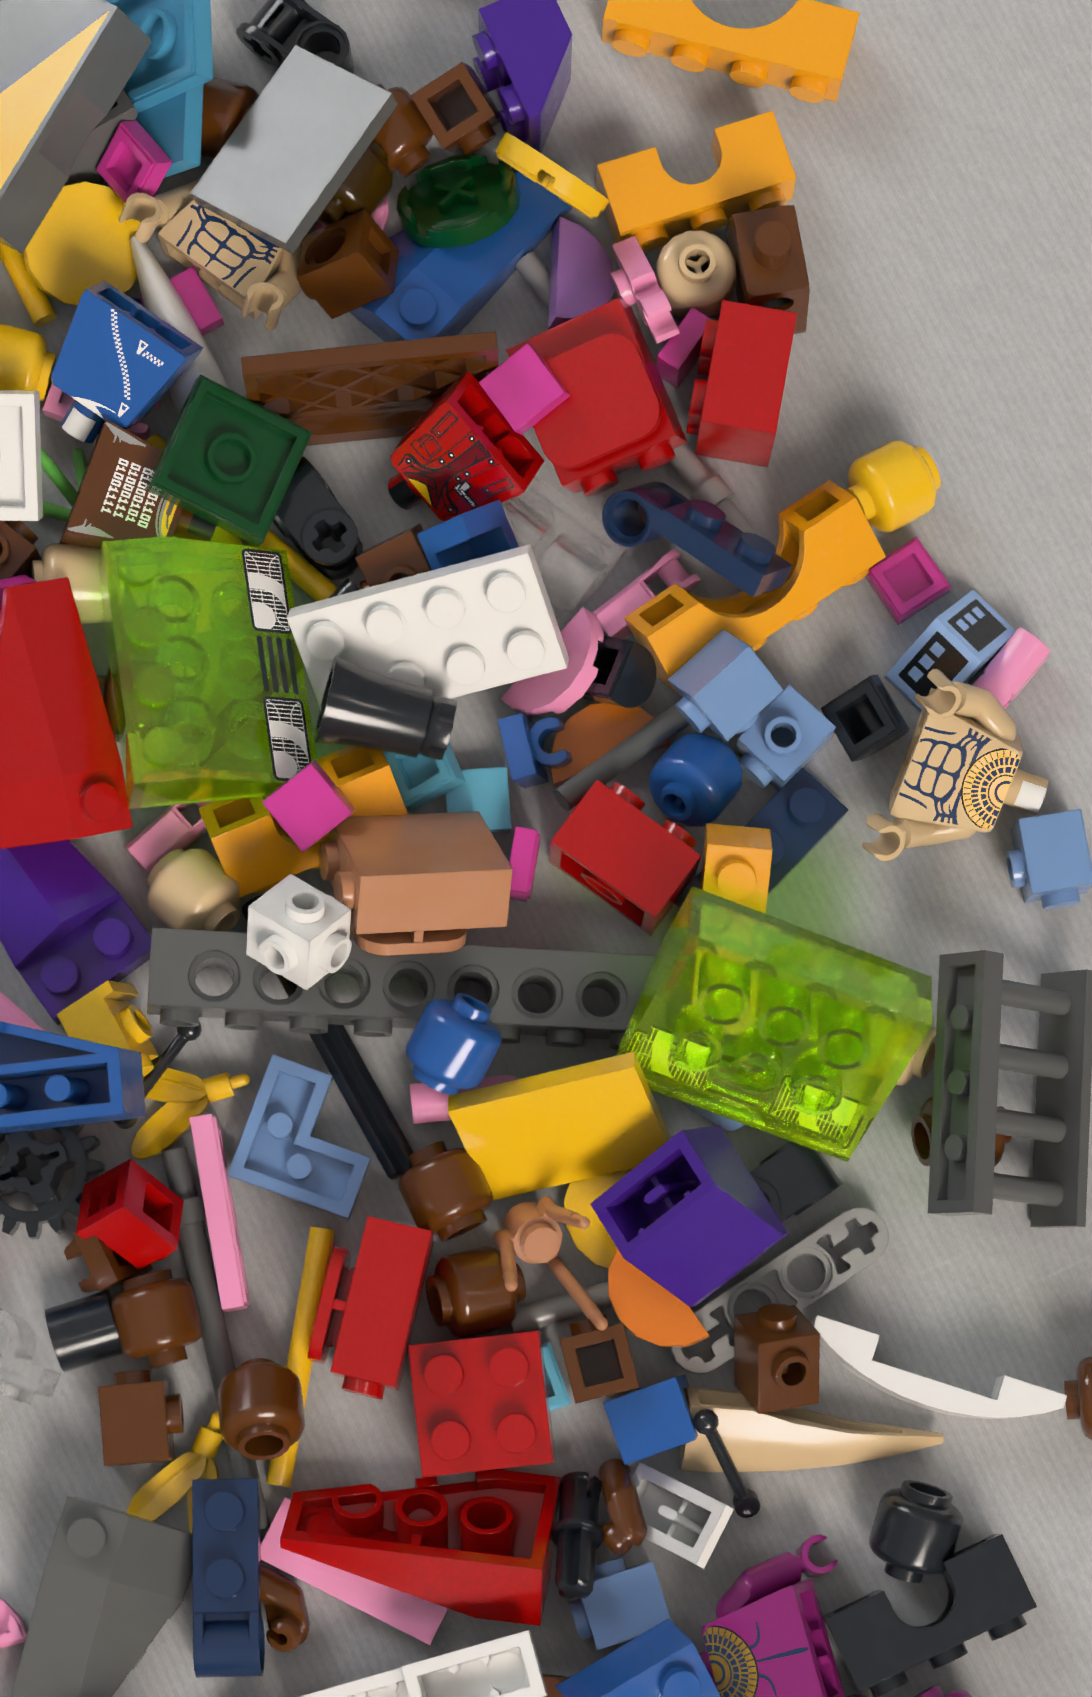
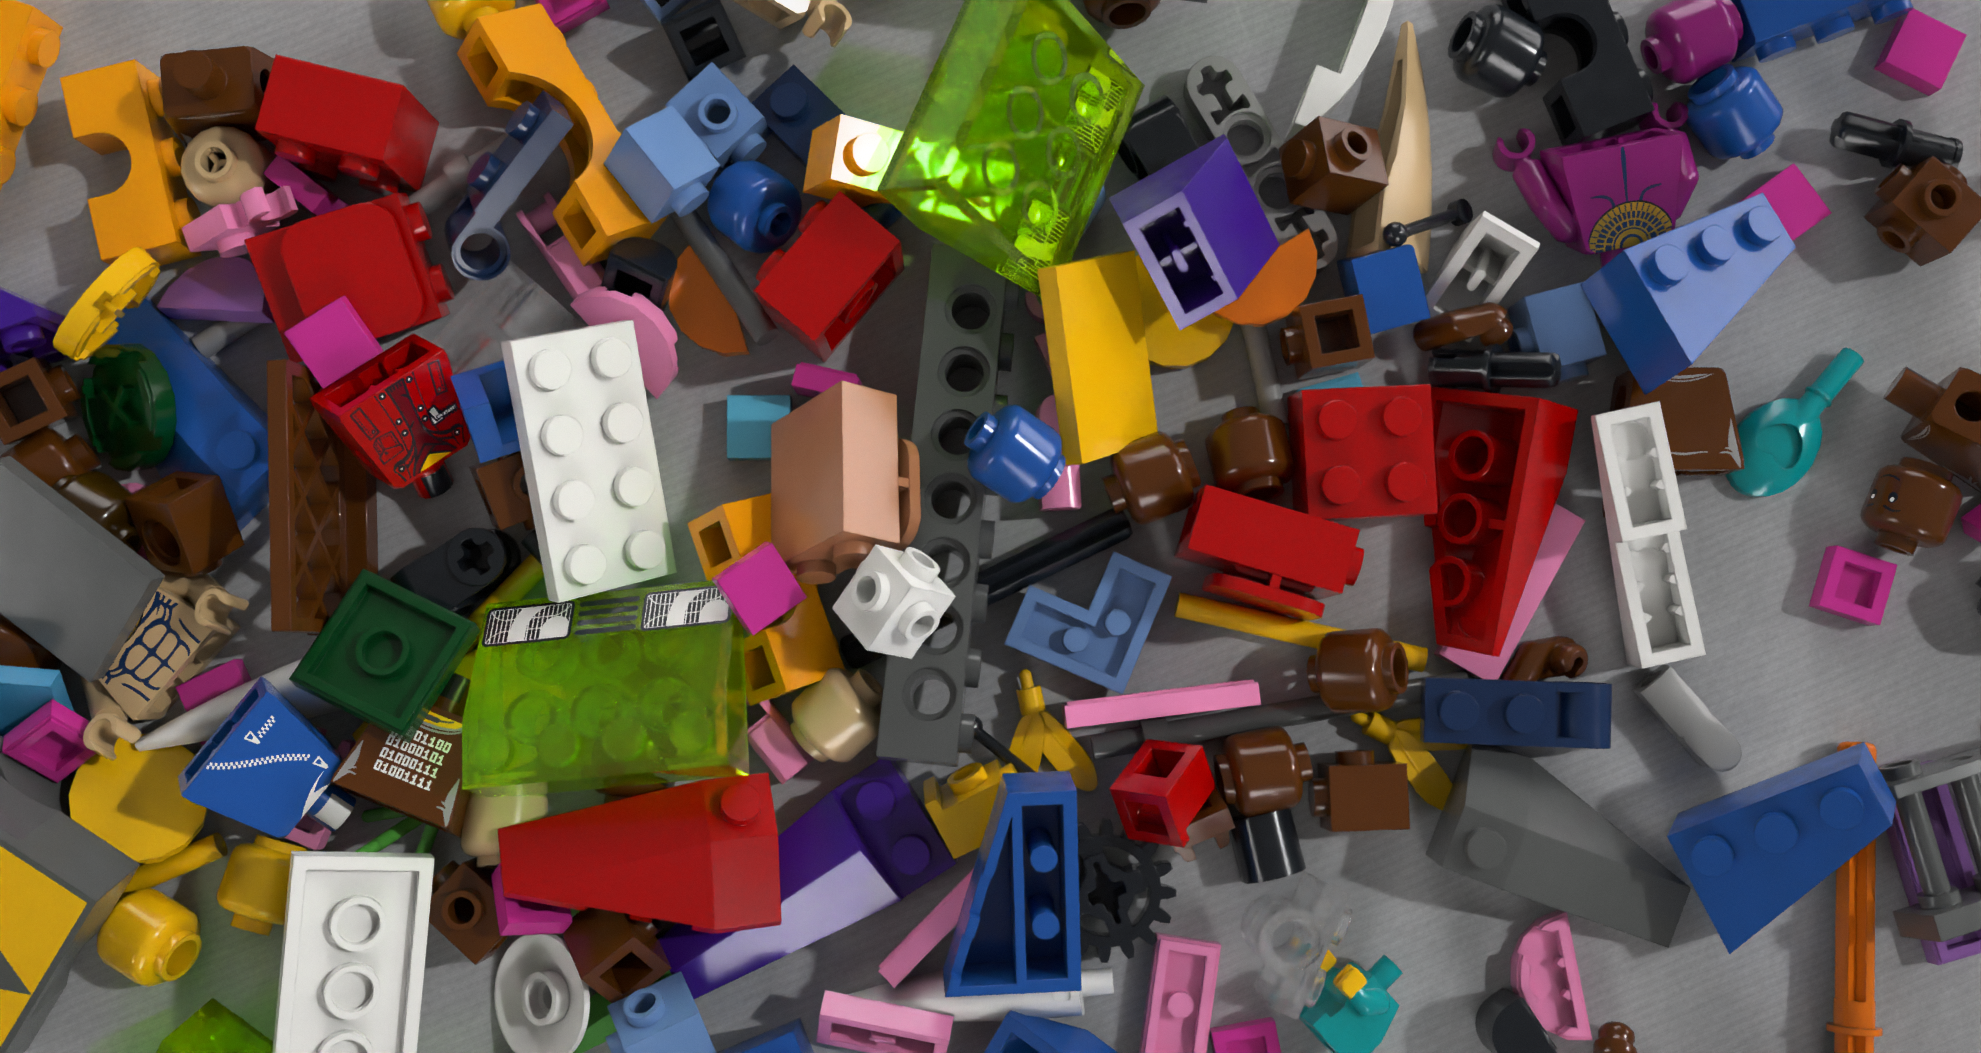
camera: 90 degrees left, 5 degrees up
(382, 713) = (666, 509): black plant -> none
(423, 777) = (720, 475): medium azure tile -> none
(525, 749) = (710, 373): blue tile -> none
(536, 1238) = (1198, 394): nougat plant -> none

